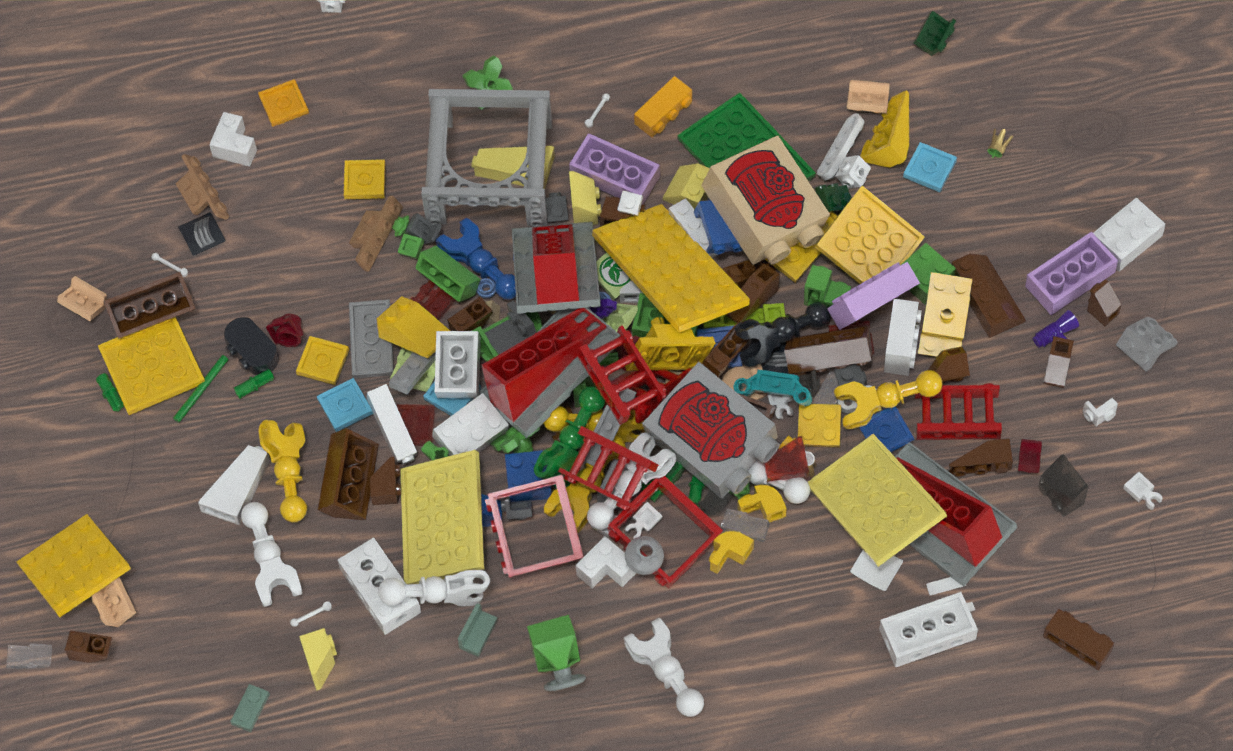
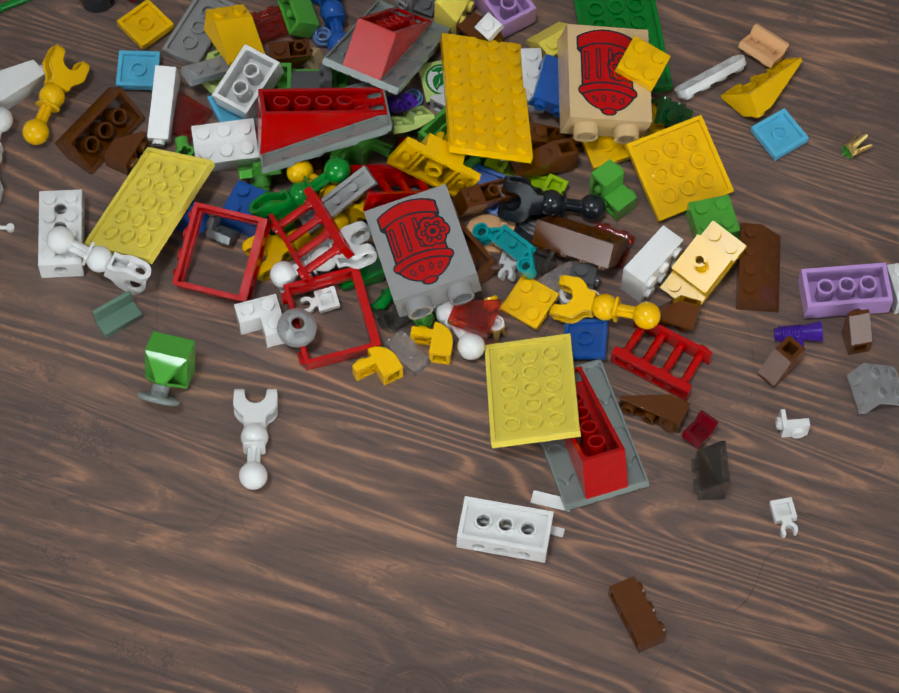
camera: 25 degrees right, 0 degrees up
(253, 383) = (76, 13): green axle -> none
(610, 391) = (352, 149): red fence -> none
(792, 167) = (642, 63): none -> yellow plate
(853, 171) = (706, 102): white brick -> none
(872, 294) = (649, 213): lavender brick -> none
(874, 575) = (498, 459): white sticker -> none
(934, 33) = (860, 21): dark green bracket -> none

